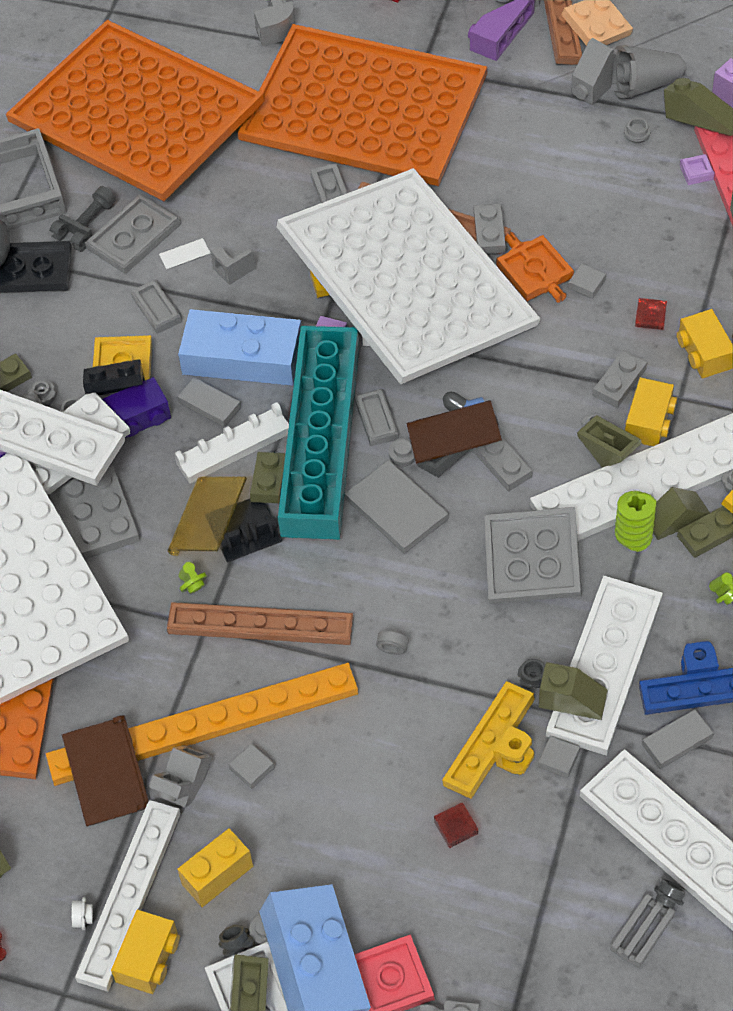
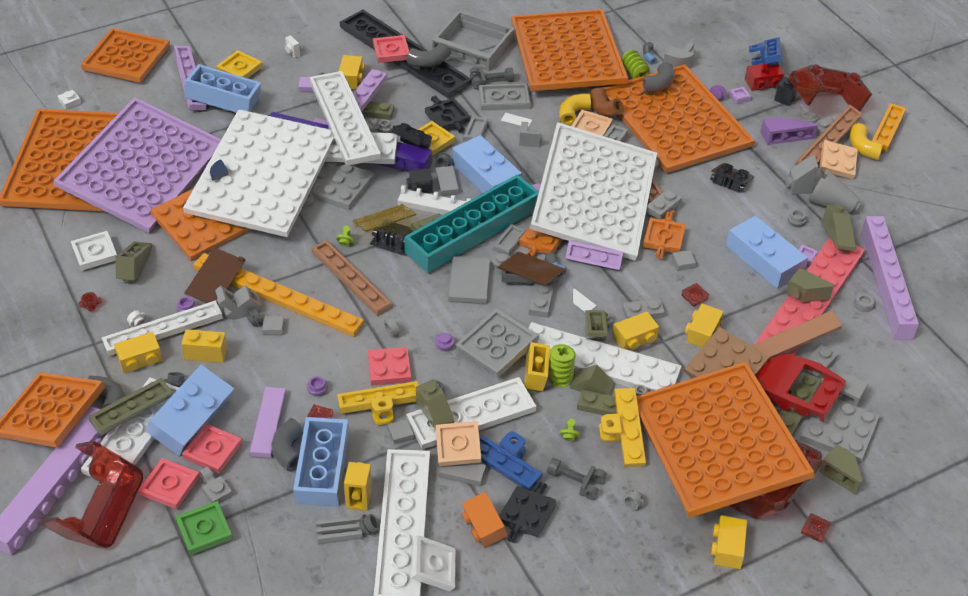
camera: 40 degrees right, 10 degrees down
(99, 312) = (447, 114): none -> black plate
(116, 839) = (185, 303): none -> medium lavender plate
(174, 378) = (443, 160): none -> dark grey plate
(185, 429) = (420, 179): none -> black brick
(220, 777) = (254, 317): none -> dark grey plate
(224, 37) = (647, 53): none -> arm
(233, 185) = (571, 105): none -> yellow cylinder
(240, 70) = (635, 64): none -> lime piece
(270, 155) = (603, 106): none -> dark orange cylinder
(285, 191) = (592, 122): none -> light nougat plate
(303, 67) = (661, 80): none -> dark grey cylinder
(372, 31) = (718, 91): none -> medium lavender plate
(395, 19) = (739, 95): none -> lavender tile
(402, 791) = (317, 385): none -> medium lavender plate
(405, 886) = (267, 421): none -> lavender tile
(410, 395) = (539, 242): none -> orange plate
(446, 692) = (389, 366): none -> coral plate
(462, 895) = (282, 444): none -> dark grey cylinder
(468, 606) = (444, 341): none -> medium lavender plate
(495, 356) = (594, 255): none -> lavender plate
(505, 132) = (736, 176): none -> black hinge
(535, 872) = (321, 461): none -> light blue brick
(544, 424) = (581, 301): none -> white sticker
(610, 545) = (536, 366): none -> yellow brick
(614, 861) = (358, 486): none -> yellow brick
(649, 712) = (458, 443): none -> light nougat plate
(661, 198) = (765, 251): none -> light blue brick

